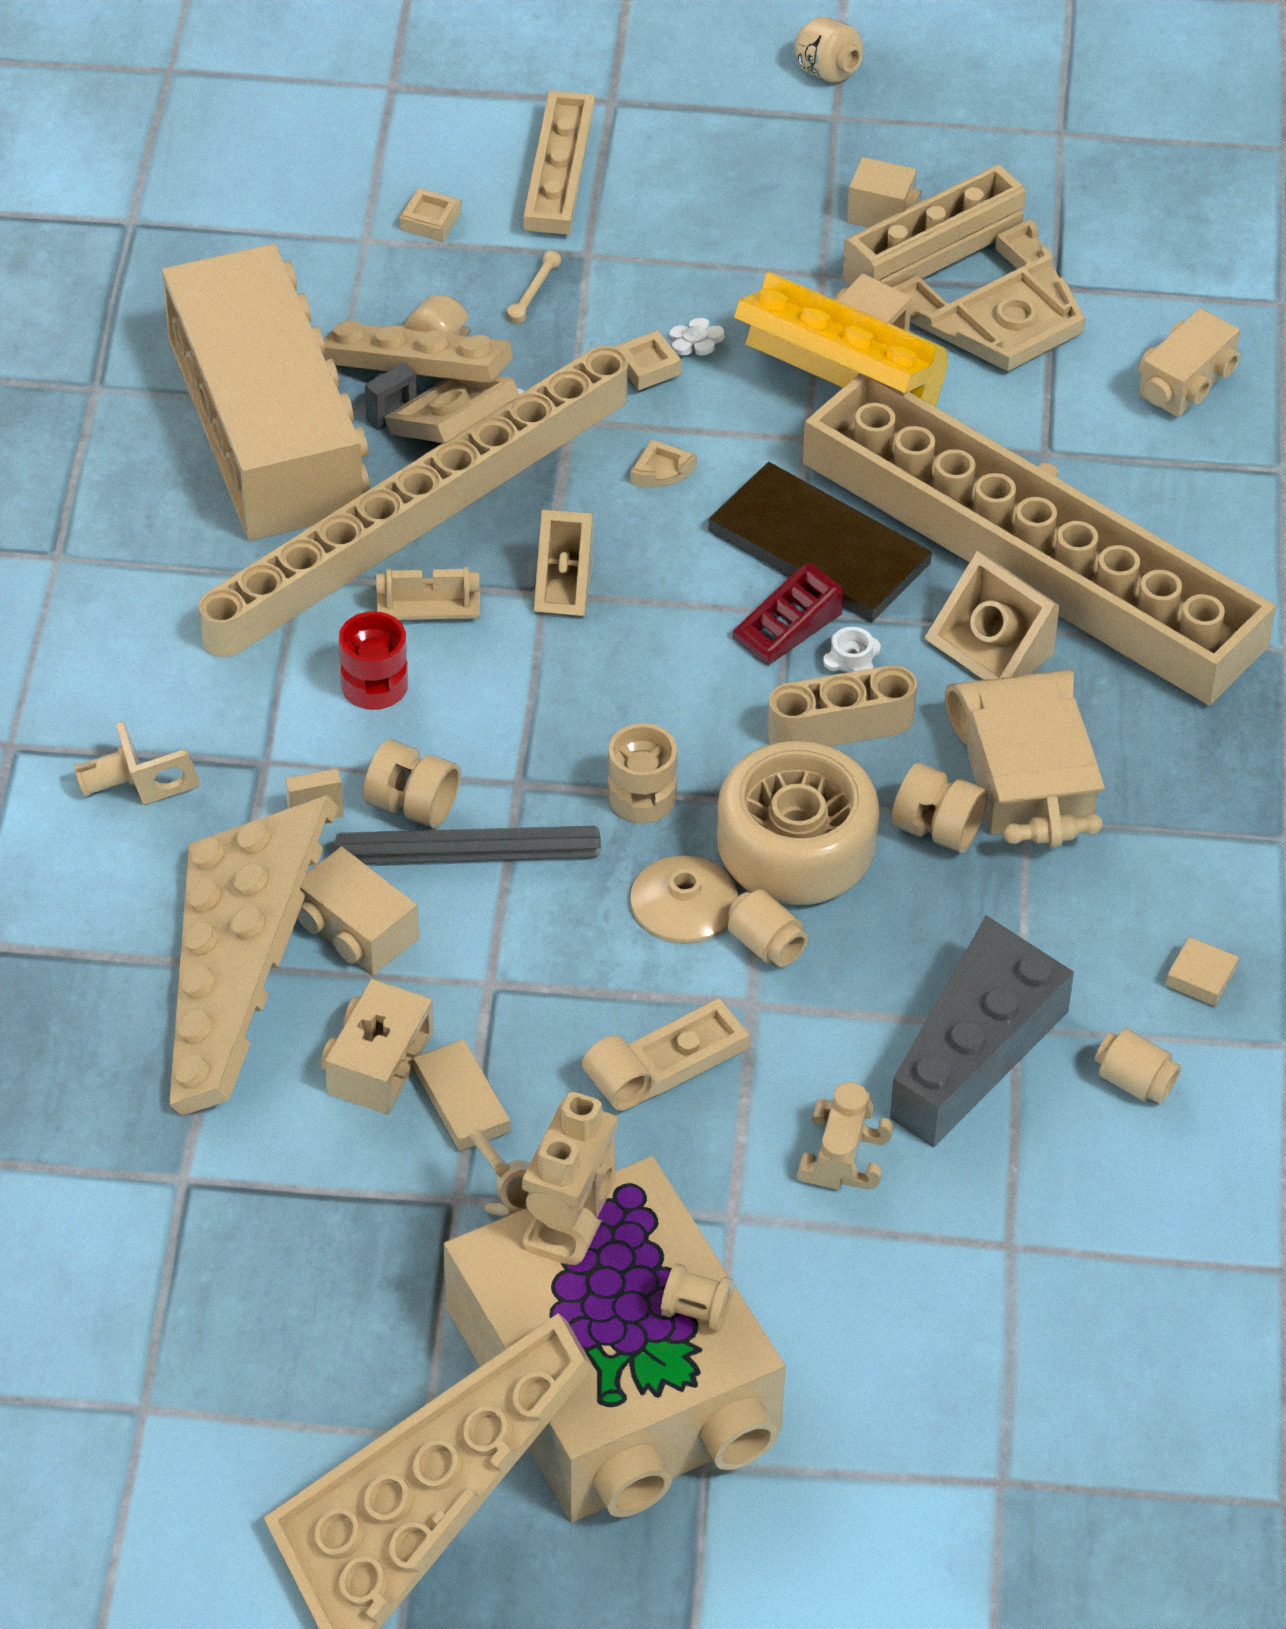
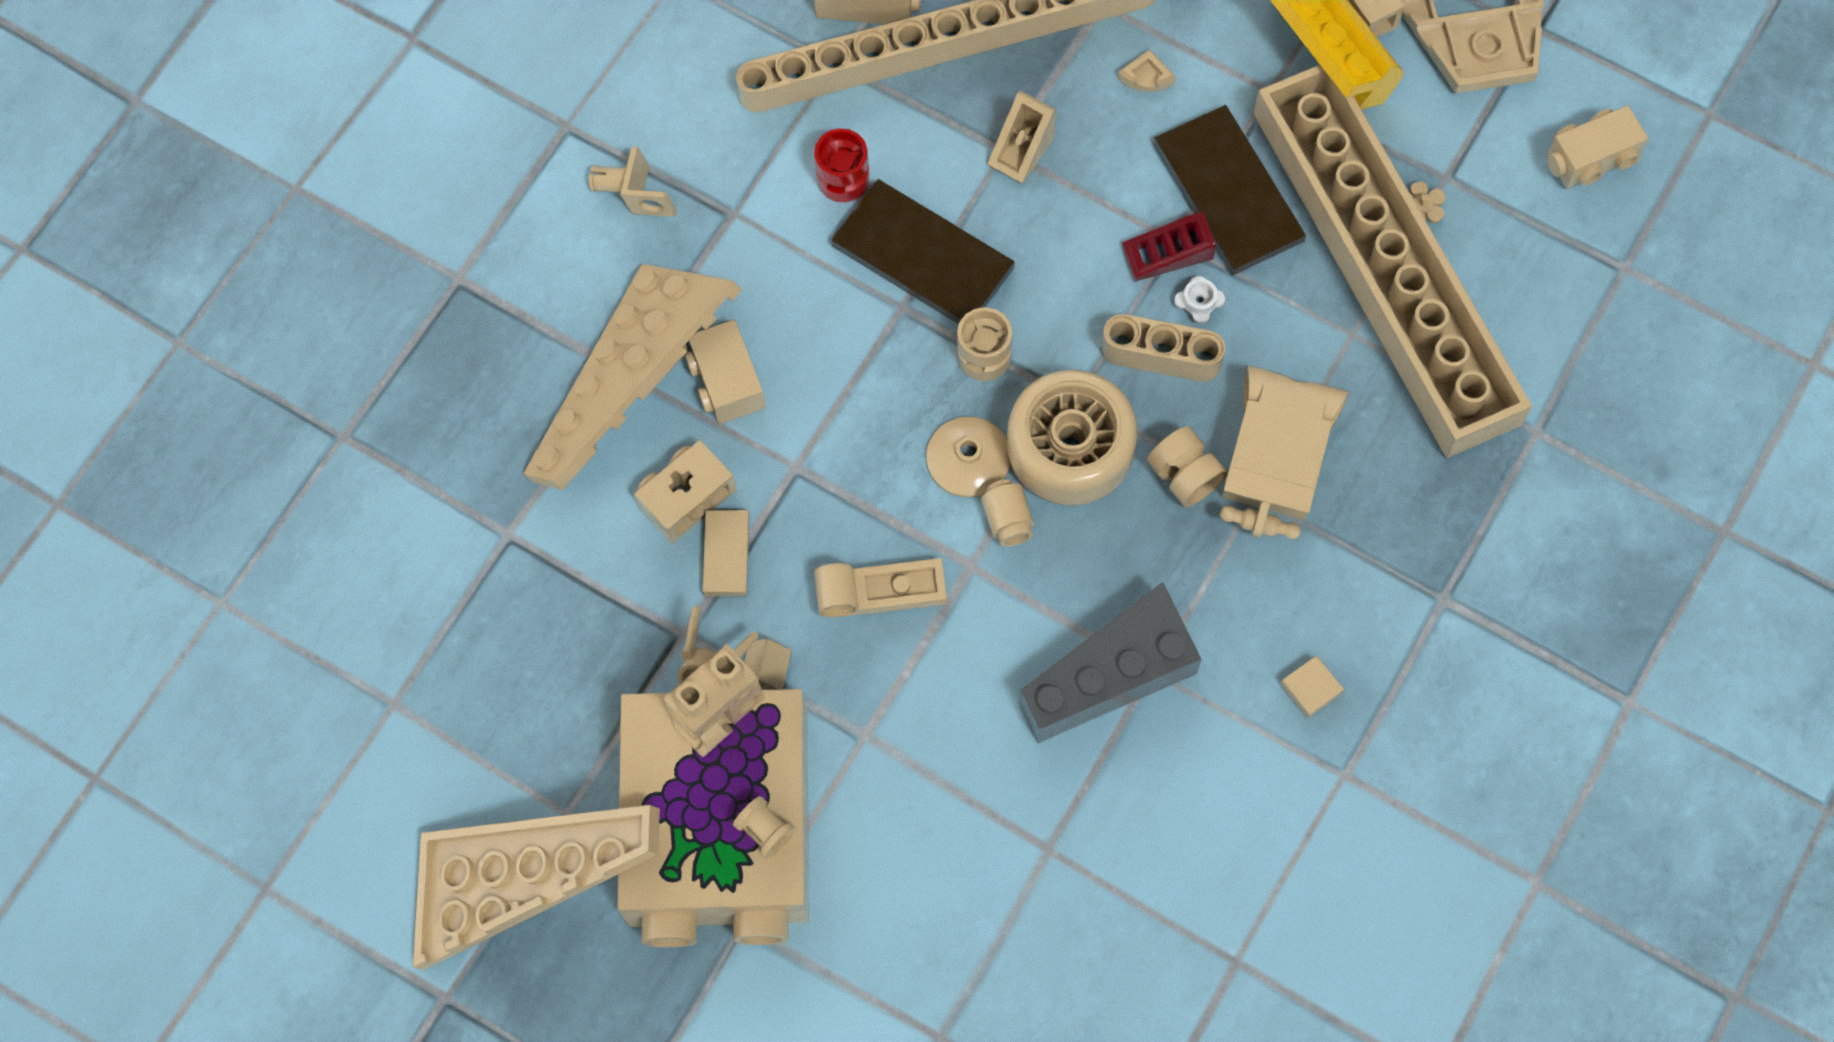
camera: 30 degrees right, 20 degrees up
(313, 786) = (745, 262): tan tile -> none
(406, 782) = (812, 276): tan wheel -> none
(445, 596) = (914, 122): tan hinge -> none
(472, 844) = (836, 347): dark grey axle -> none
(513, 720) = (922, 252): none -> dark brown tile
(842, 1140) = (968, 714): tan piece -> none
(995, 622) = (1314, 324): tan slope -> none
(1137, 1066) = (1216, 748): tan brick -> none

